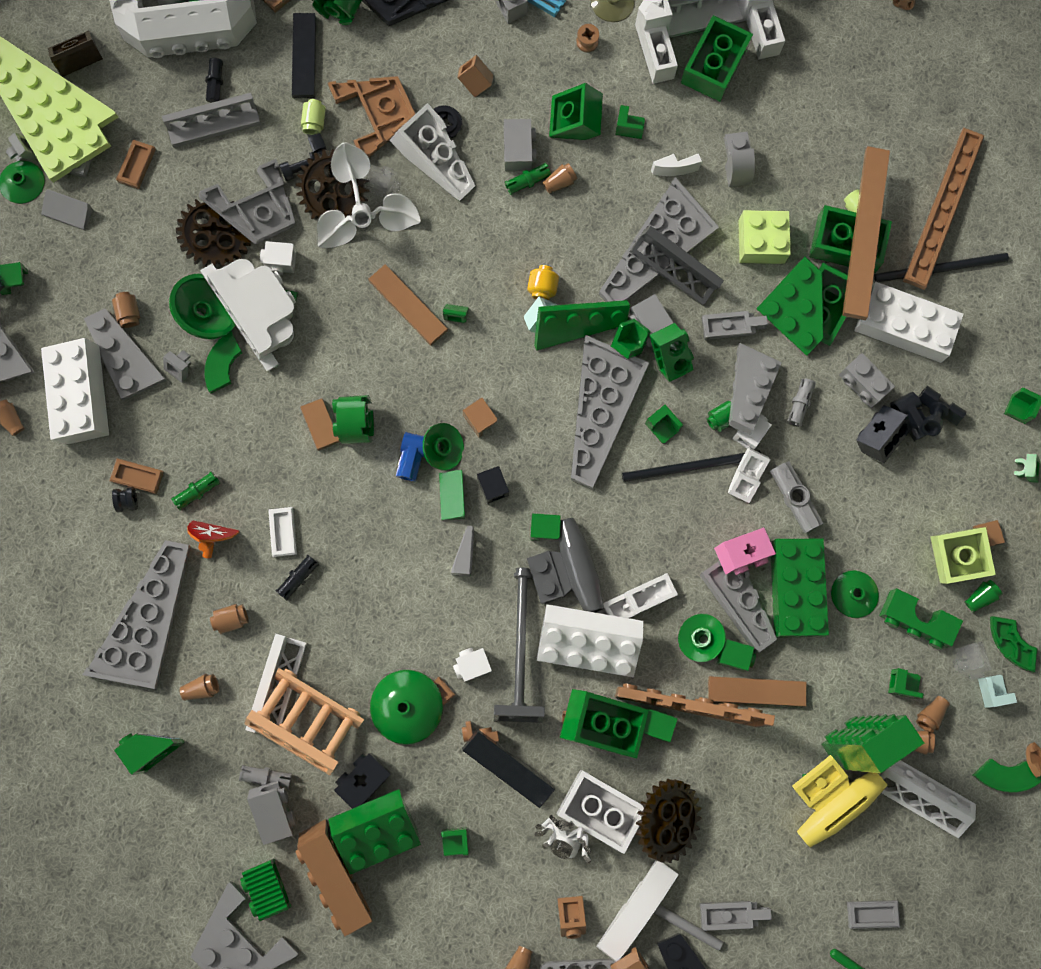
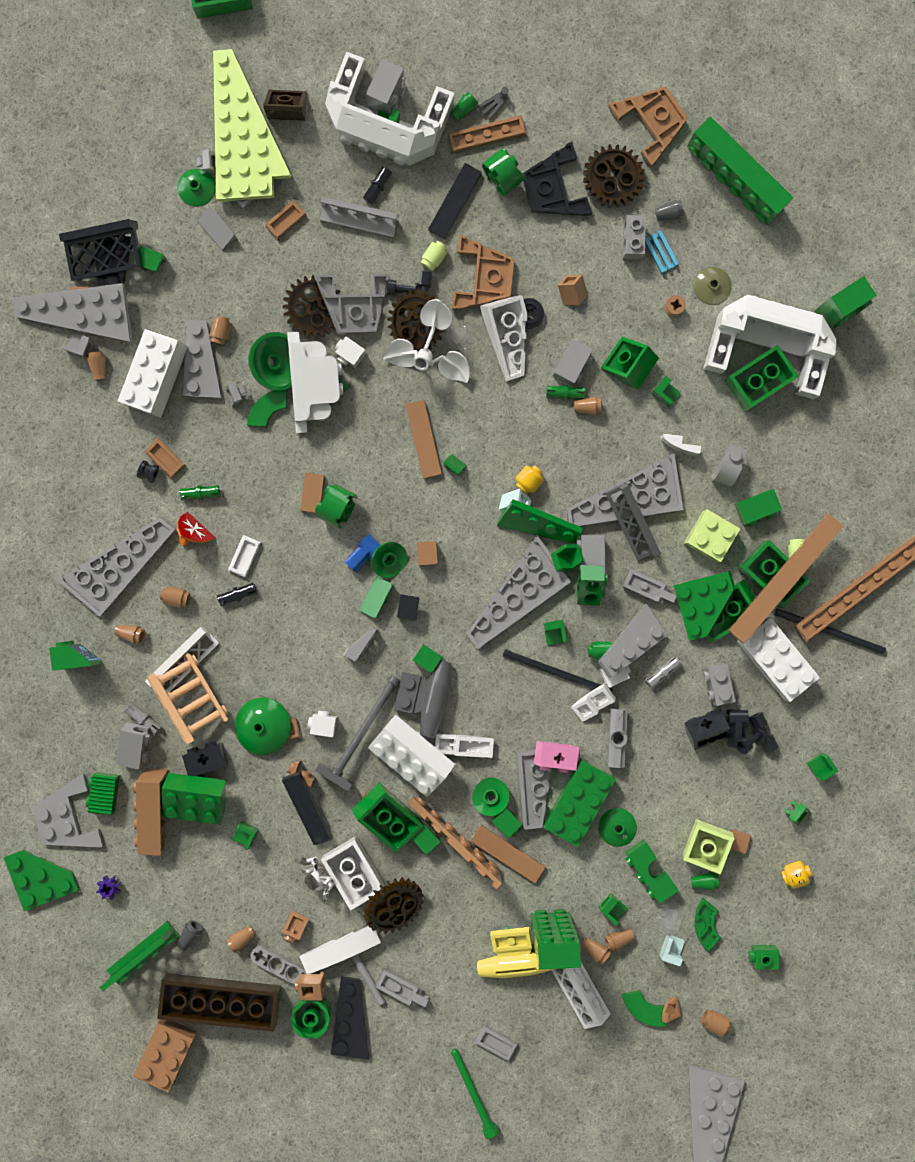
camera: 40 degrees right, 10 degrees up
(792, 183) = (757, 507): none -> green brick

